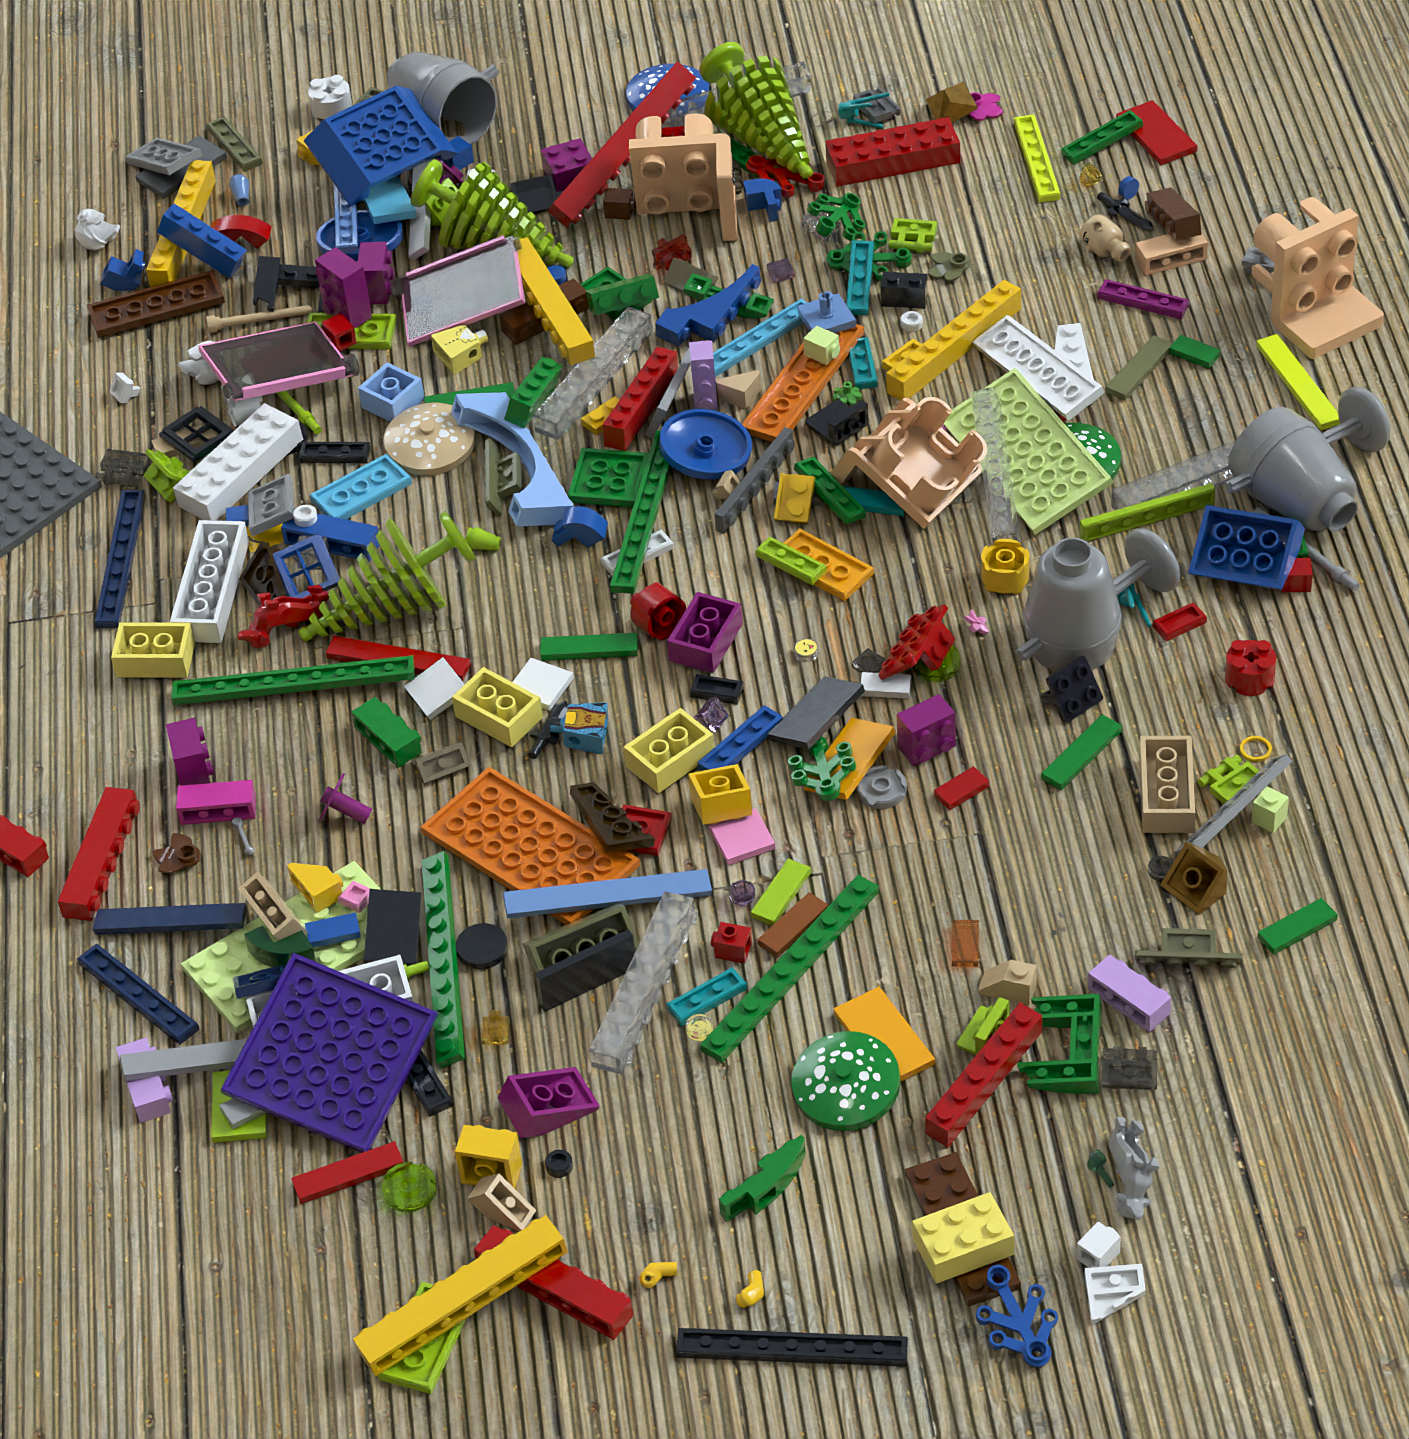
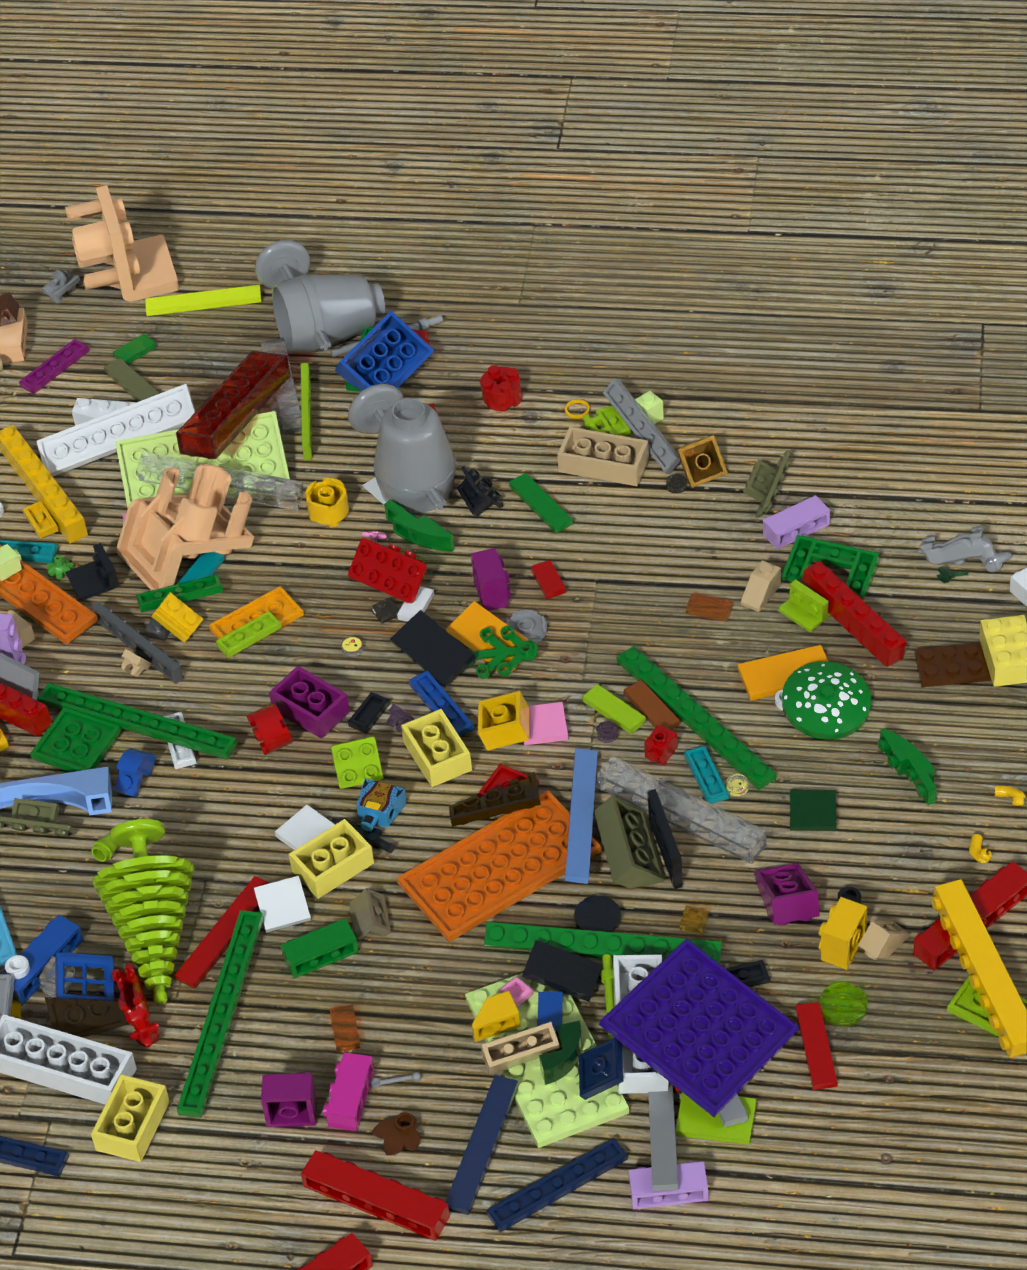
camera: 75 degrees left, 0 degrees up
(297, 780) = (344, 1028): none -> clear orange tile
(344, 804) = (394, 991): magenta piece -> none
(589, 646) = (277, 791): green tile -> none
(633, 693) = (356, 761): none -> lime bracket
(679, 1104) = (812, 810): none -> dark green tile
(705, 443) = (79, 663): blue dish -> none
(995, 652) = (418, 531): none -> green slope
(1092, 435) = (233, 405): none -> clear red brick
(1129, 1074) = (871, 535): clear smoke plate -> none
(1297, 926) = (760, 423): green tile -> none

